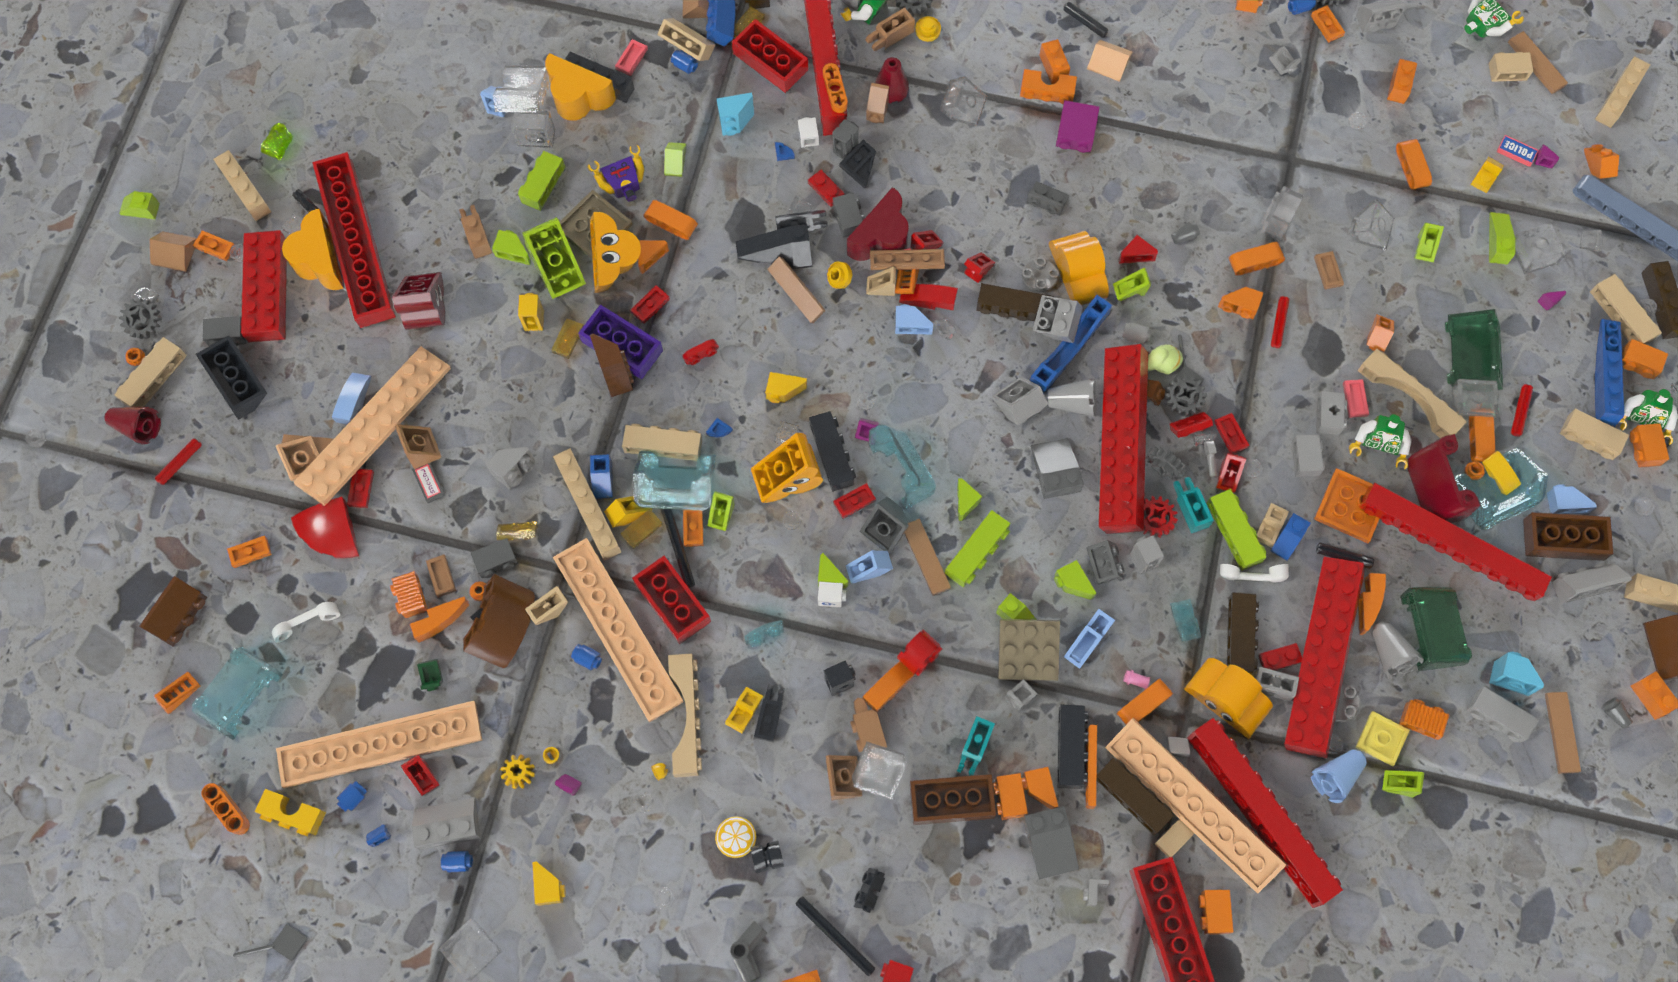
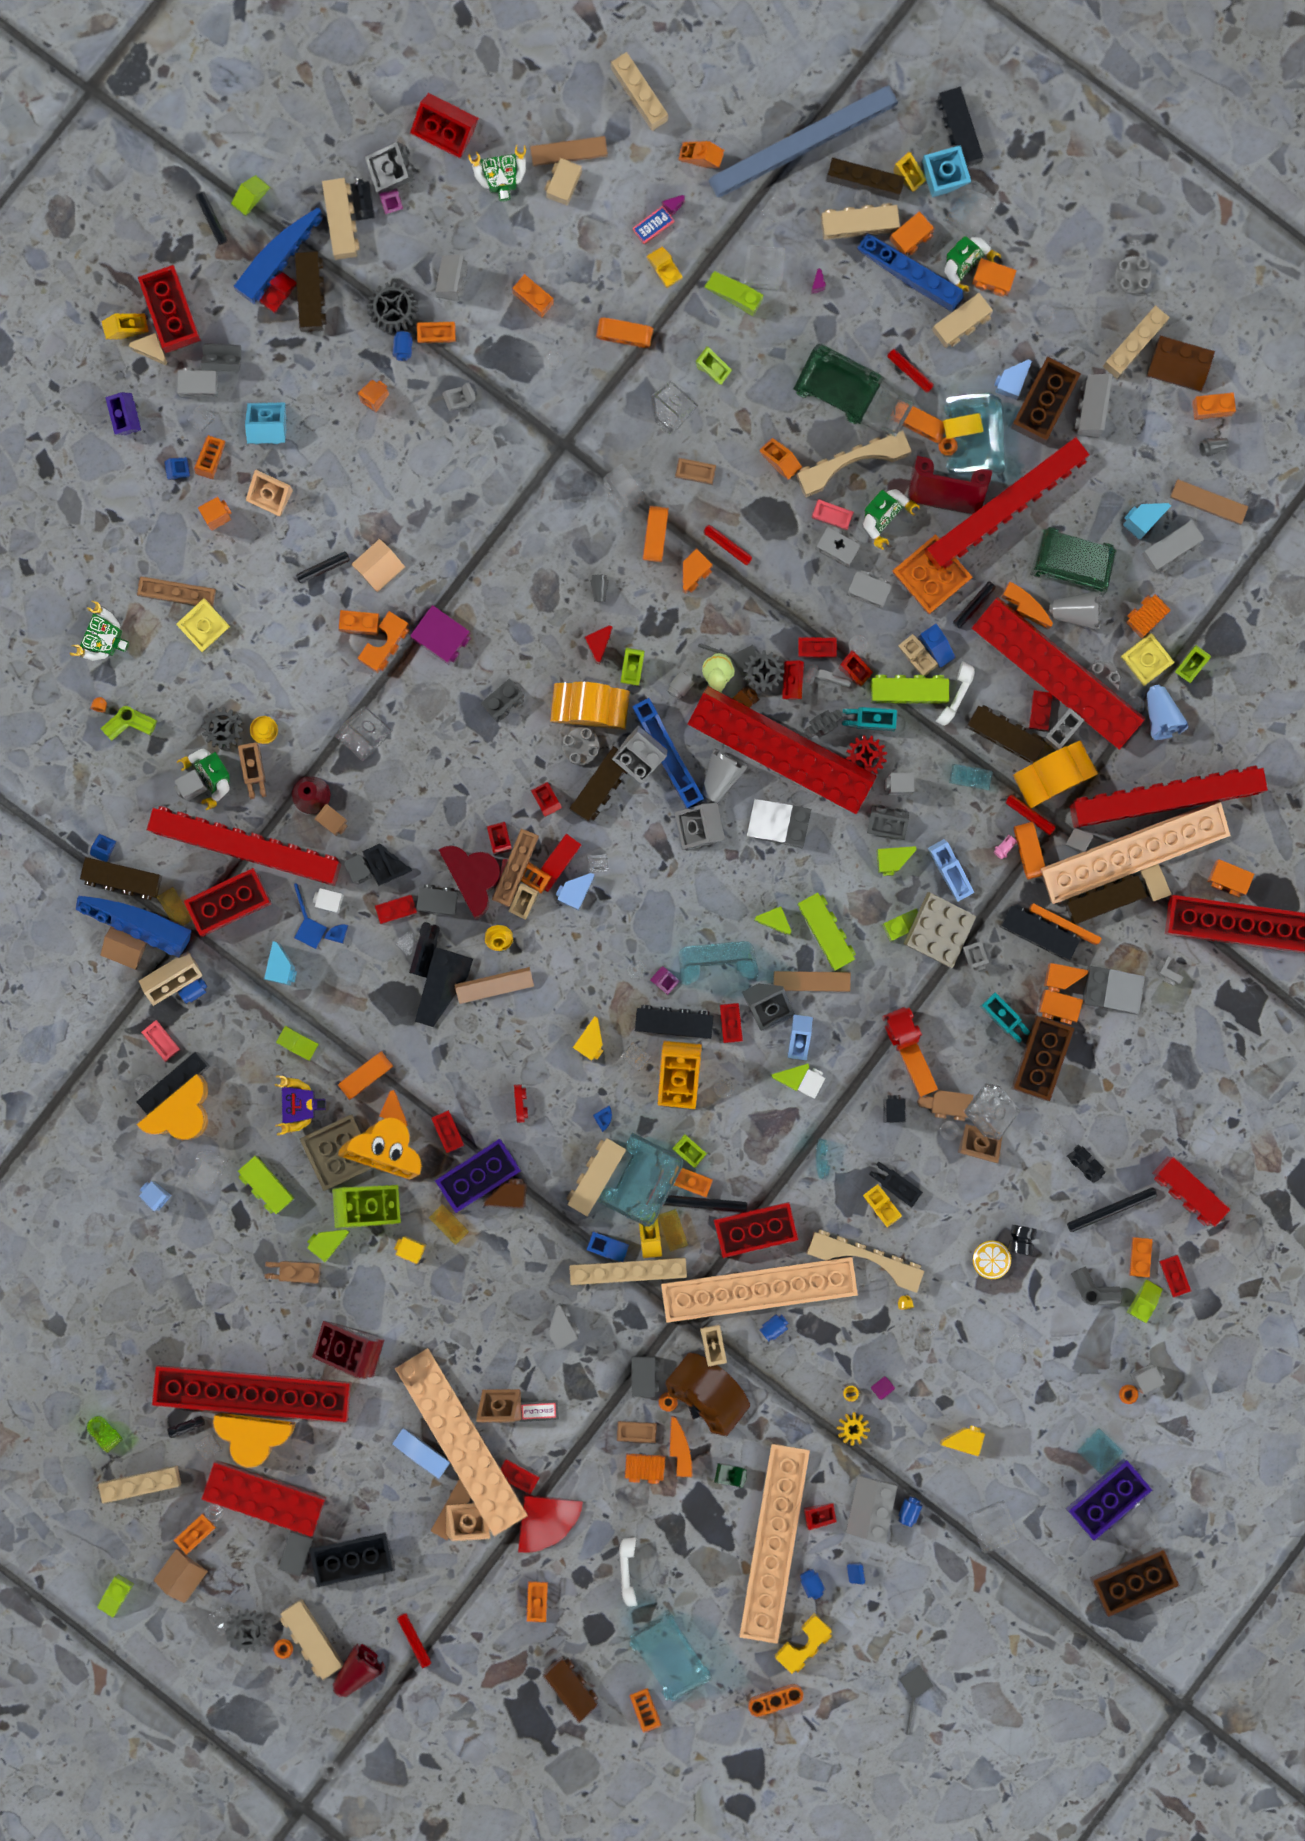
camera: 75 degrees left, 15 degrees up
(516, 530) = (625, 1345): clear yellow plate -> none
(522, 90) = (182, 1165): clear arch -> none
(776, 131) = (309, 931): none -> blue piece
(834, 94) = (291, 860): orange beam -> none
(1178, 690) = (1030, 814): none -> red axle

